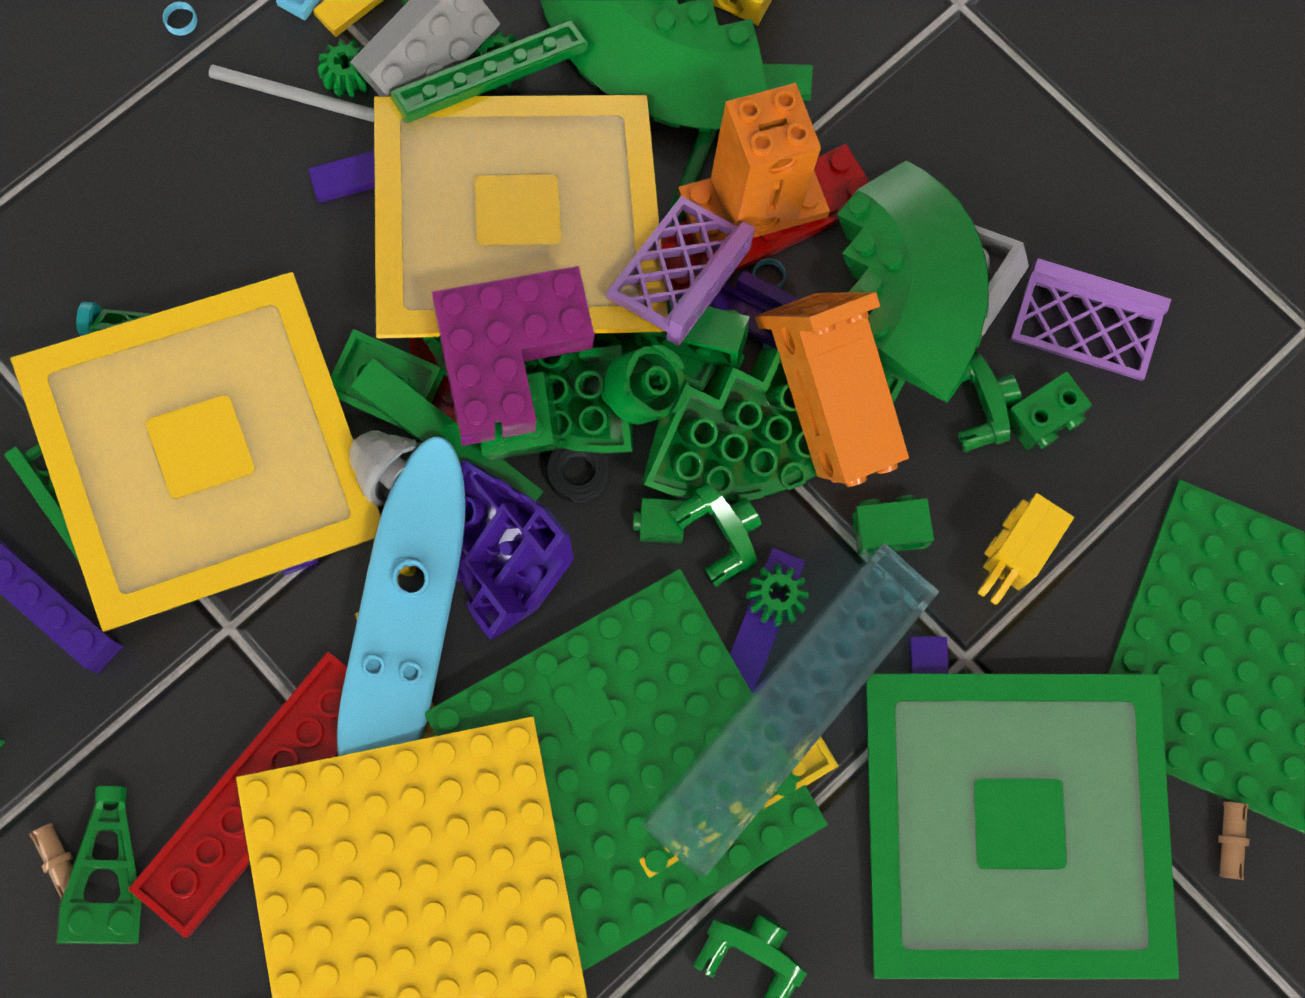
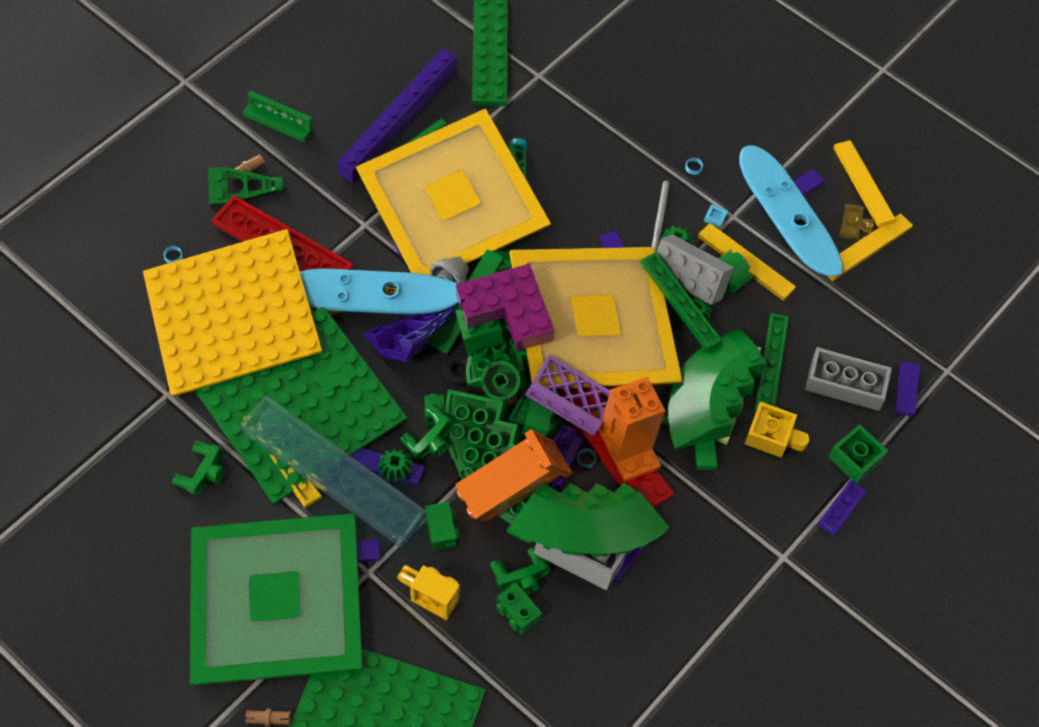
camera: 85 degrees right, 15 degrees down
(1099, 291) = (598, 632): medium lavender fence -> none

